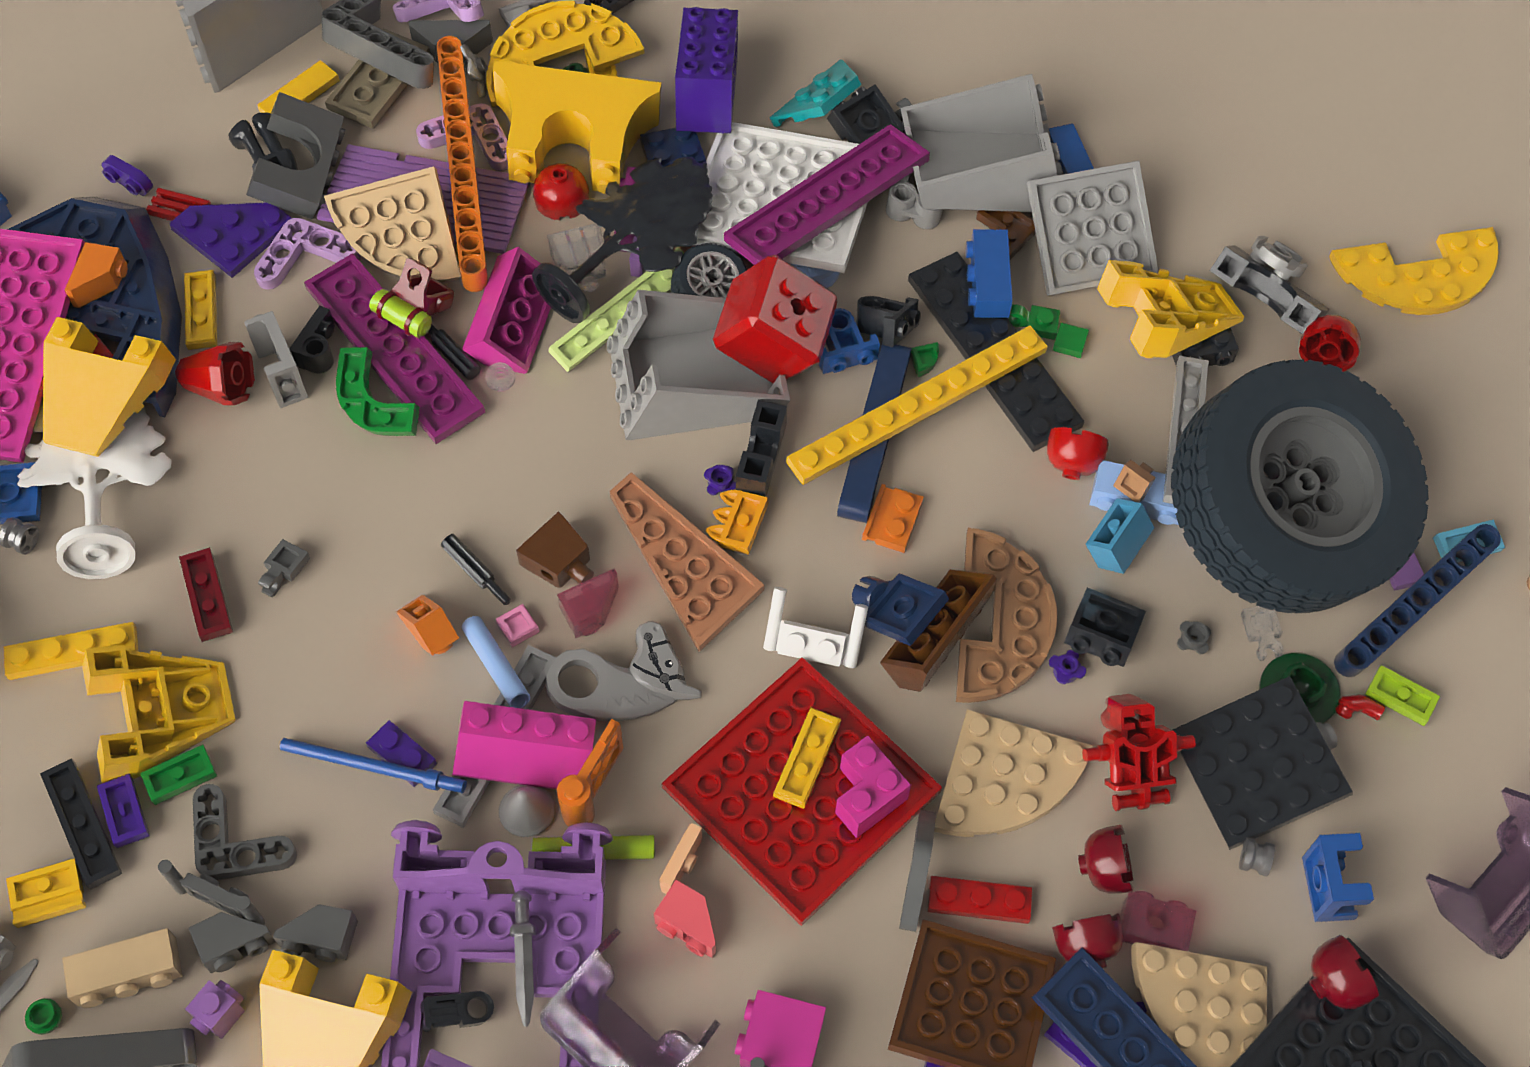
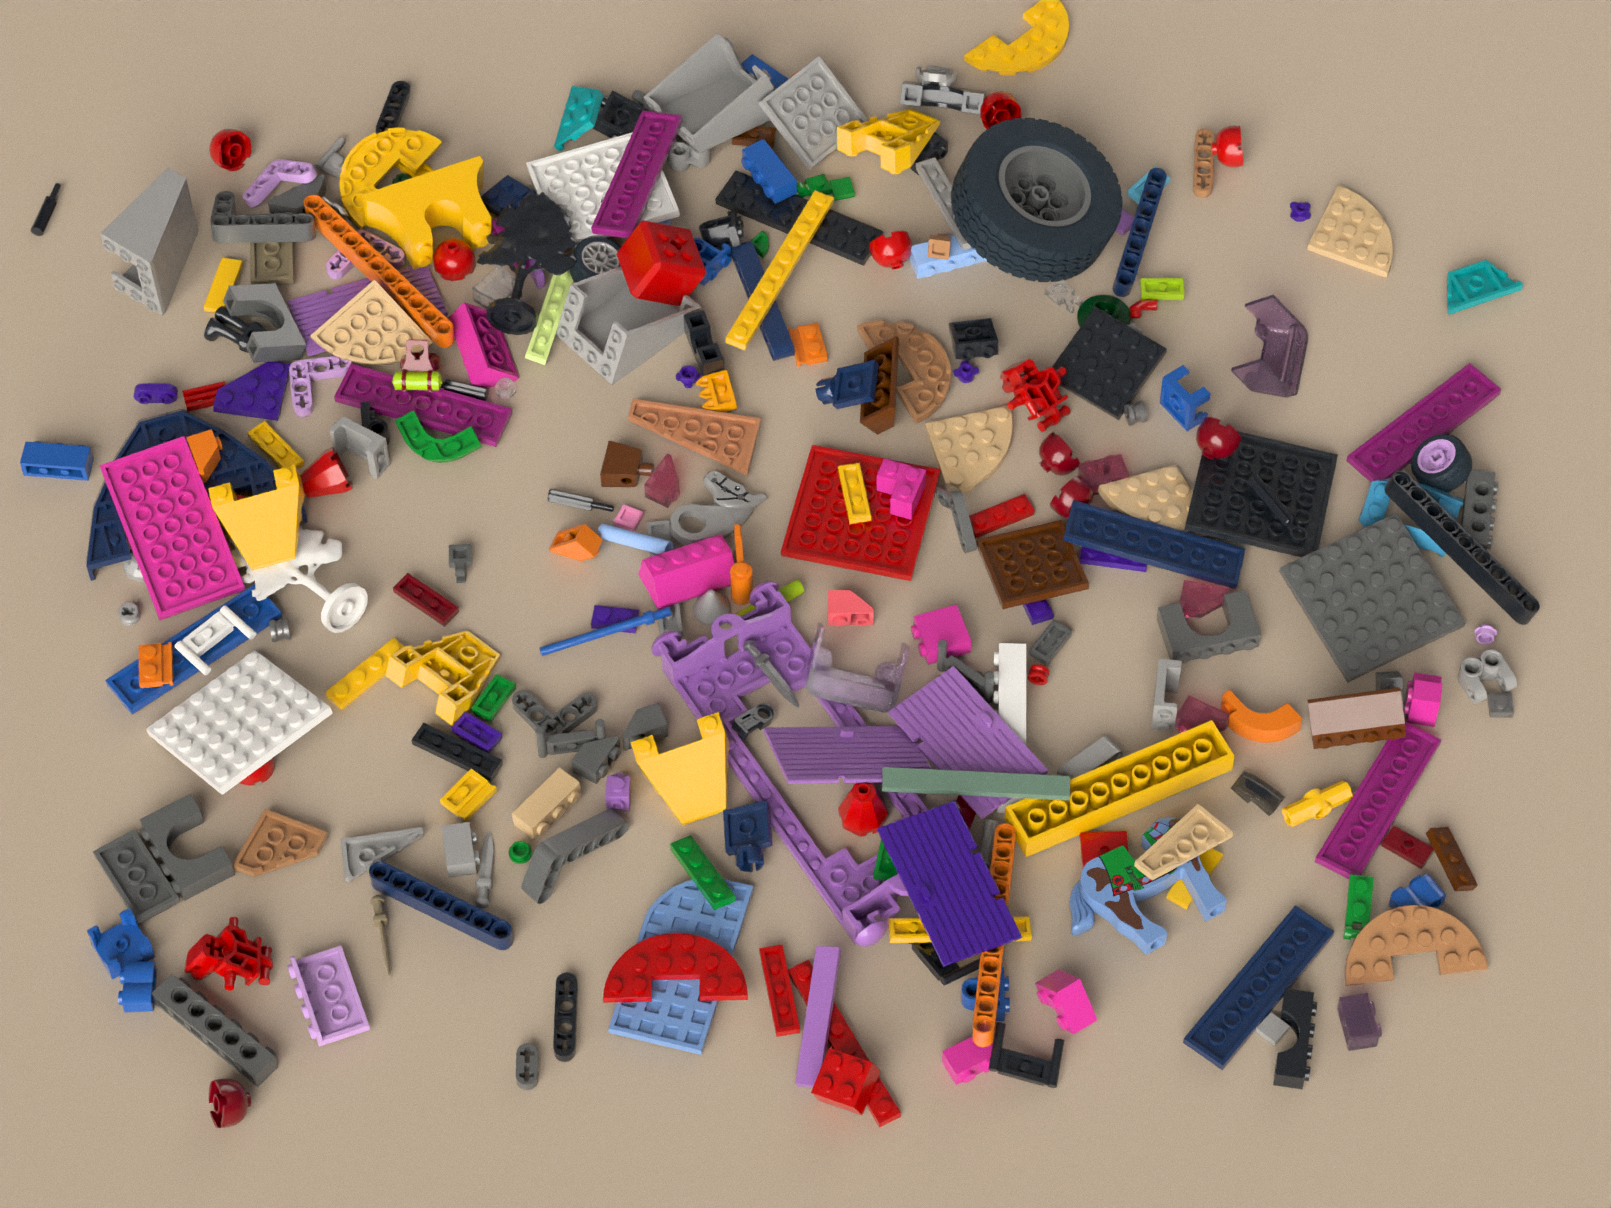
camera: 30 degrees left, 5 degrees down
(683, 858) = (822, 582): light nougat plate -> none
(706, 70) = (499, 134): dark purple brick -> none
(813, 642) = (810, 434): white plate -> none
(1120, 535) = (949, 283): dark azure brick -> none
(1194, 629) = (1026, 313): dark grey plate -> none

